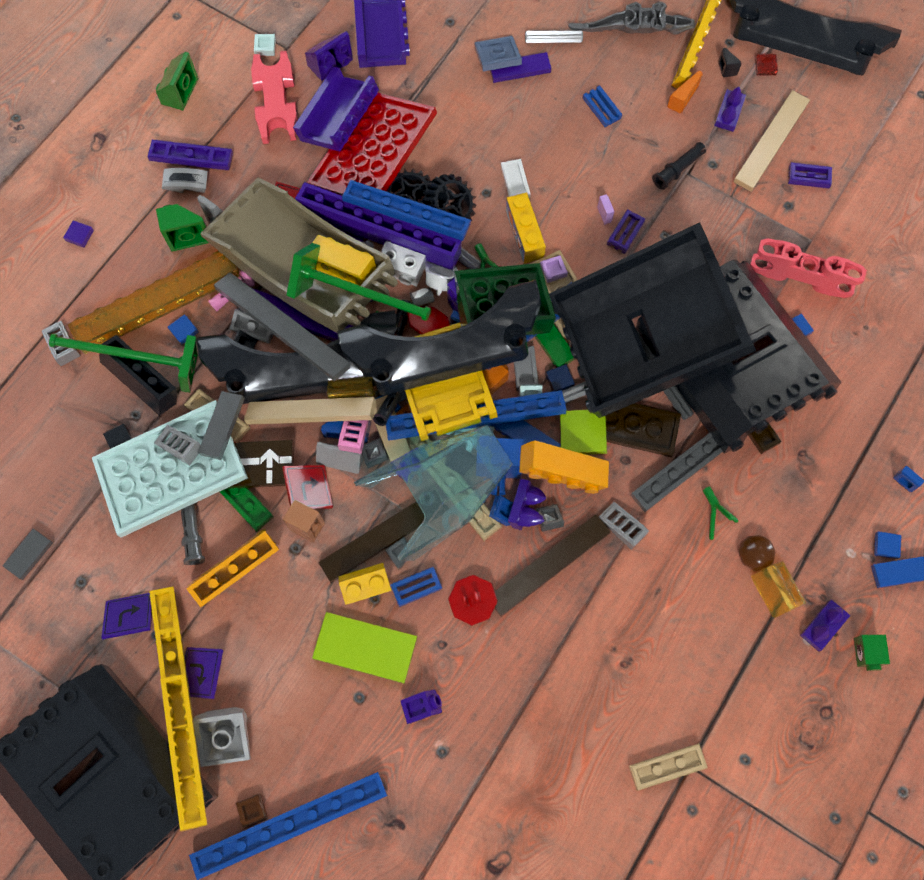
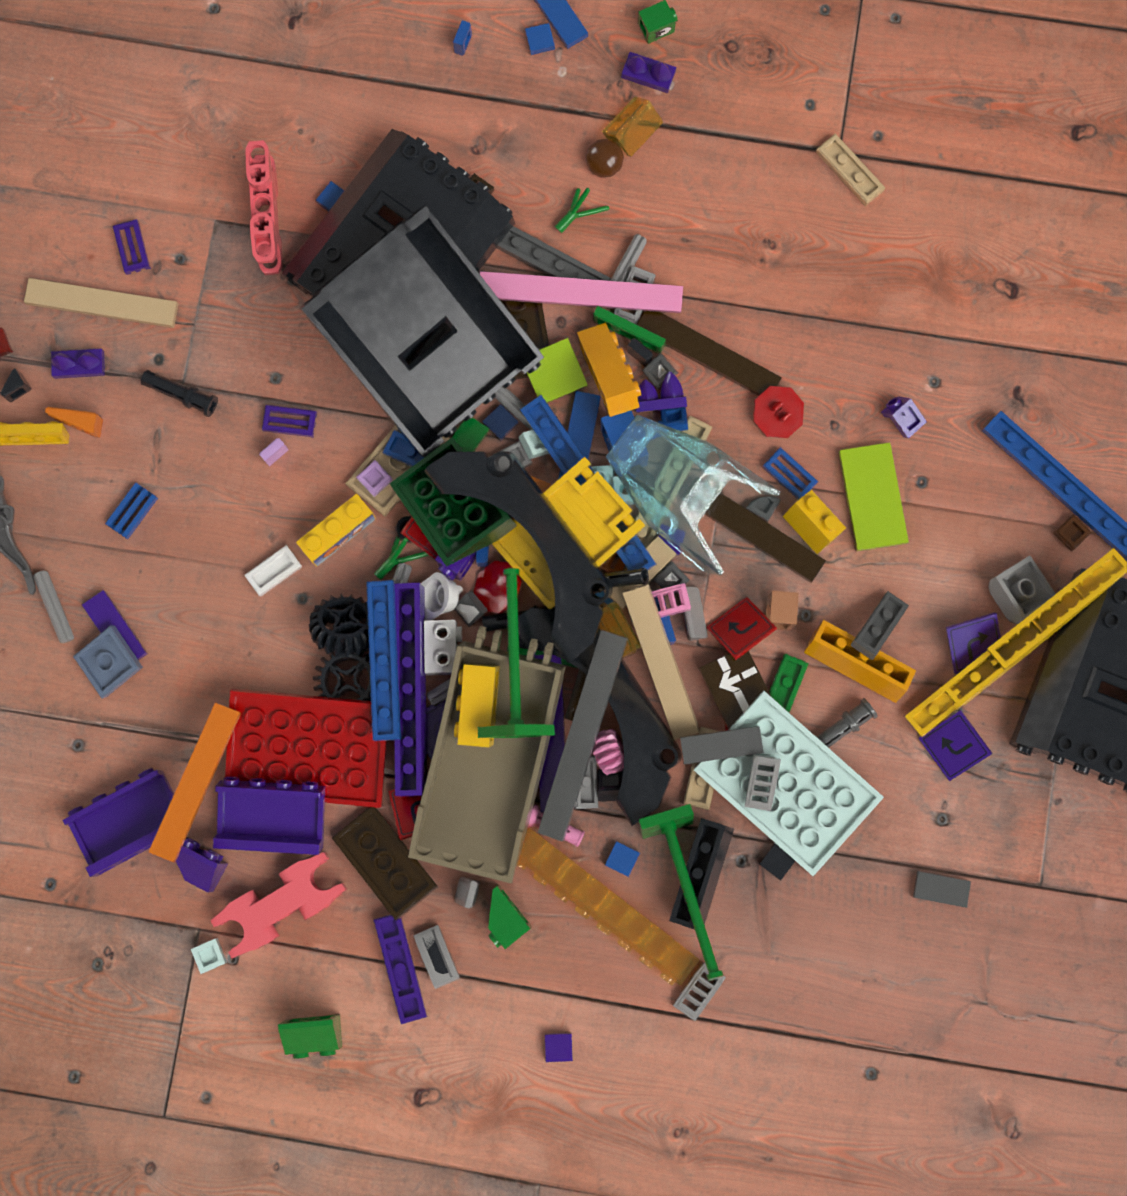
camera: 110 degrees left, 10 degrees up
(253, 596) = (879, 625): none -> dark grey tile
(263, 342) = (609, 751): none -> bright pink gear
(280, 165) = (384, 862): none -> dark brown tile
(380, 61) = (194, 782): none -> orange tile
(572, 507) = (639, 352): none -> black tile
(594, 506) = (629, 330): none -> green tile
(641, 481) = (585, 292): none -> bright pink tile
(655, 531) = (629, 258): none -> light grey axle

